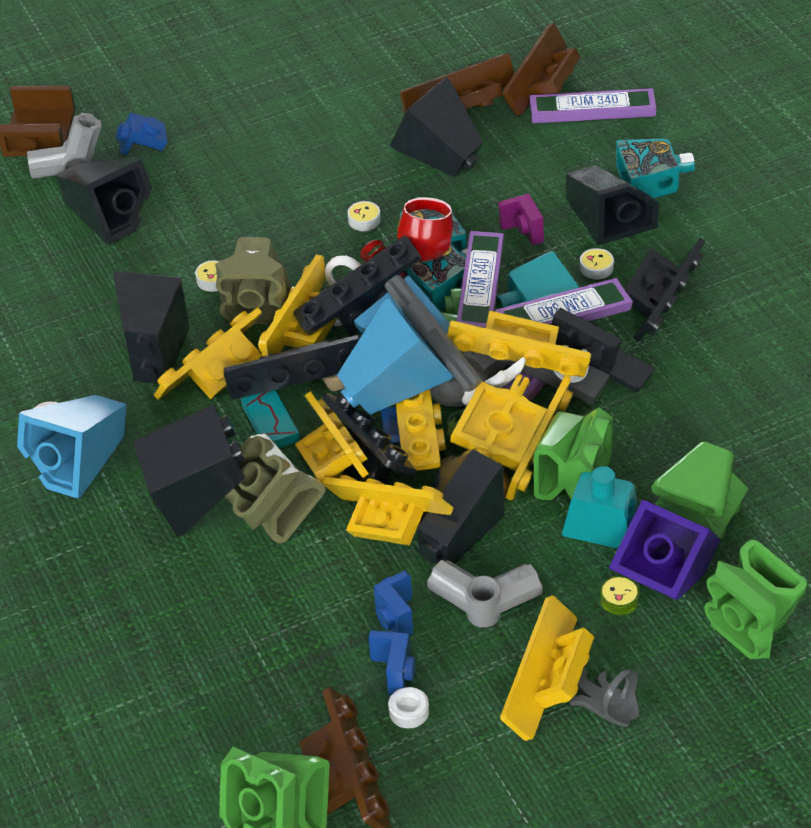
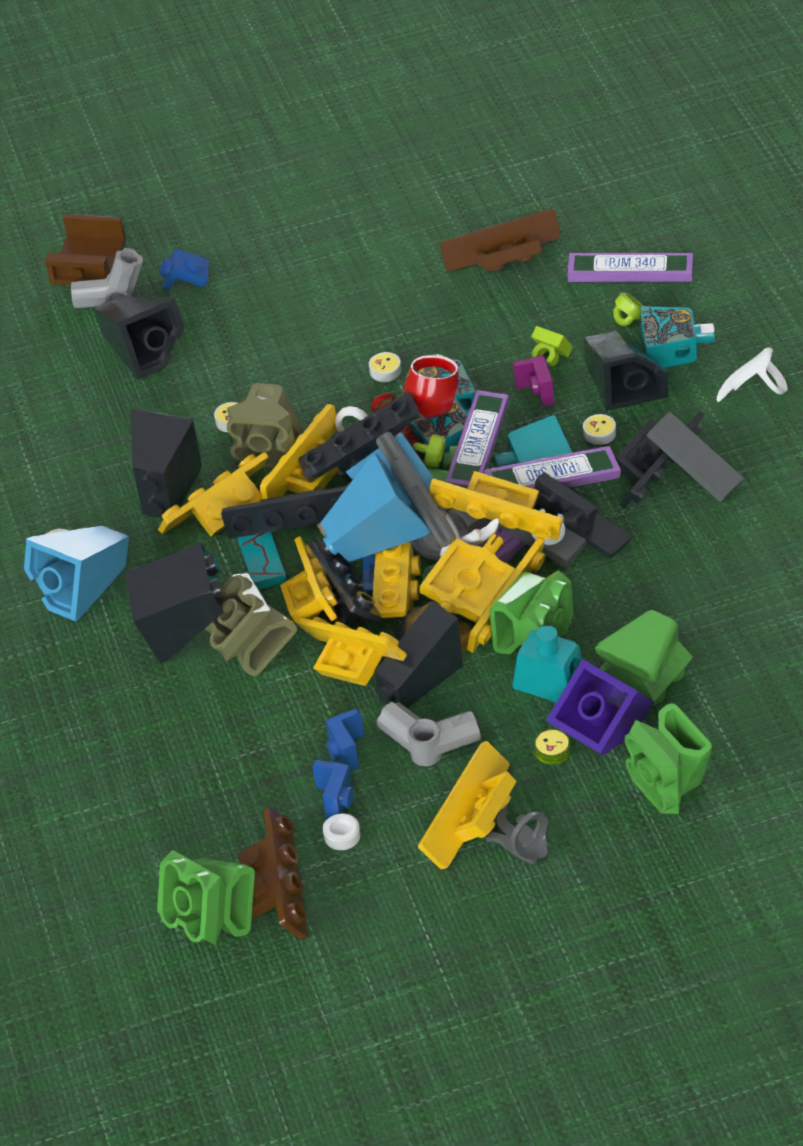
camera: 10 degrees right, 0 degrees up
(437, 293) = (434, 450): none -> lime tile
(439, 131) = (470, 286): black slope -> none
(530, 180) = (550, 342): none -> lime tile
(542, 70) = (585, 227): reddish brown bracket -> none
(604, 142) = (630, 306): none -> lime tile
(705, 283) = (695, 456): none -> dark grey tile
(748, 188) = (757, 365): none -> white piece

